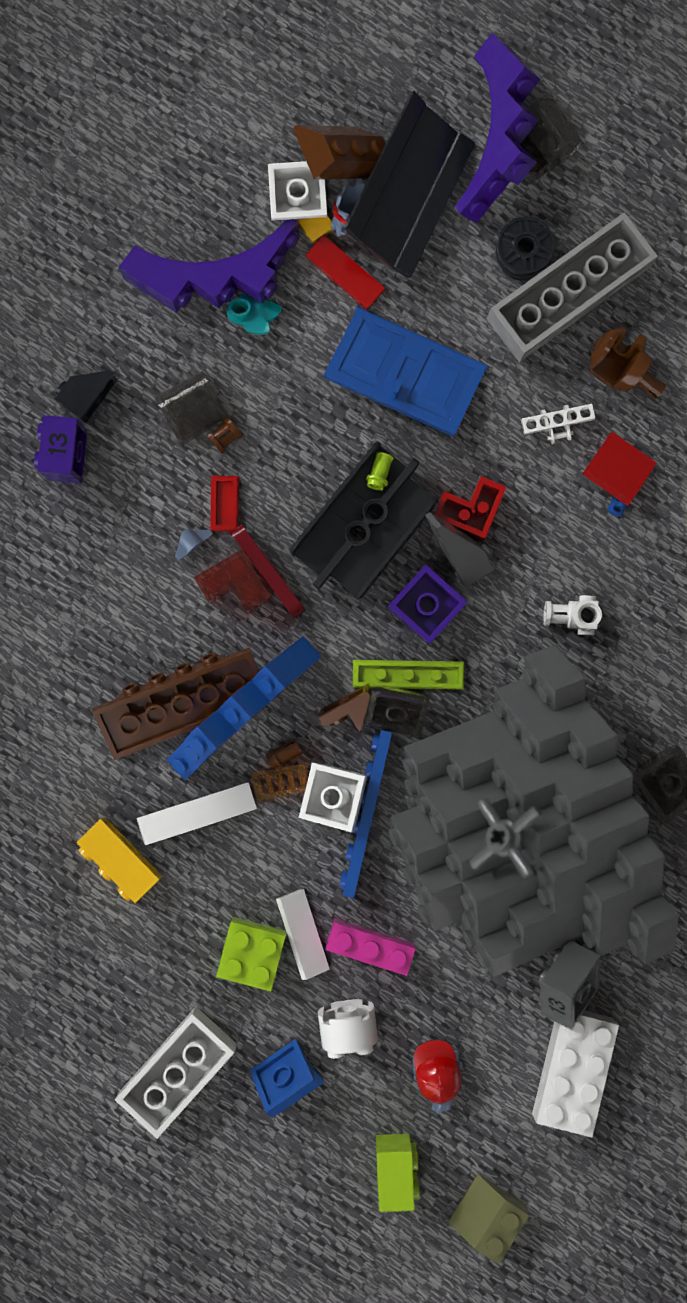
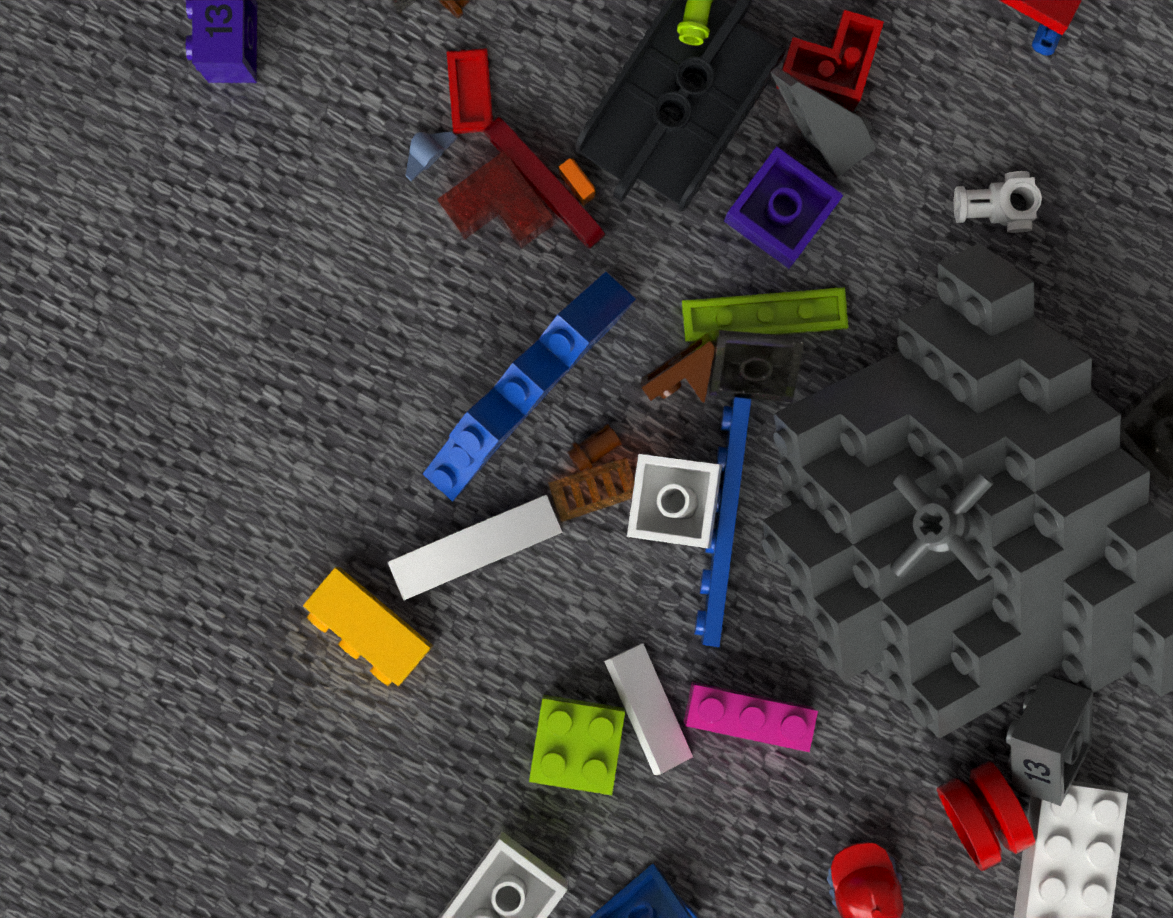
camera: 10 degrees left, 0 degrees up
(172, 702) = (422, 388): reddish brown plate -> none
(290, 572) = (577, 181): none -> orange tile
(348, 1028) = (730, 838): white brick -> none
(522, 1030) = (985, 815): none -> red wheel

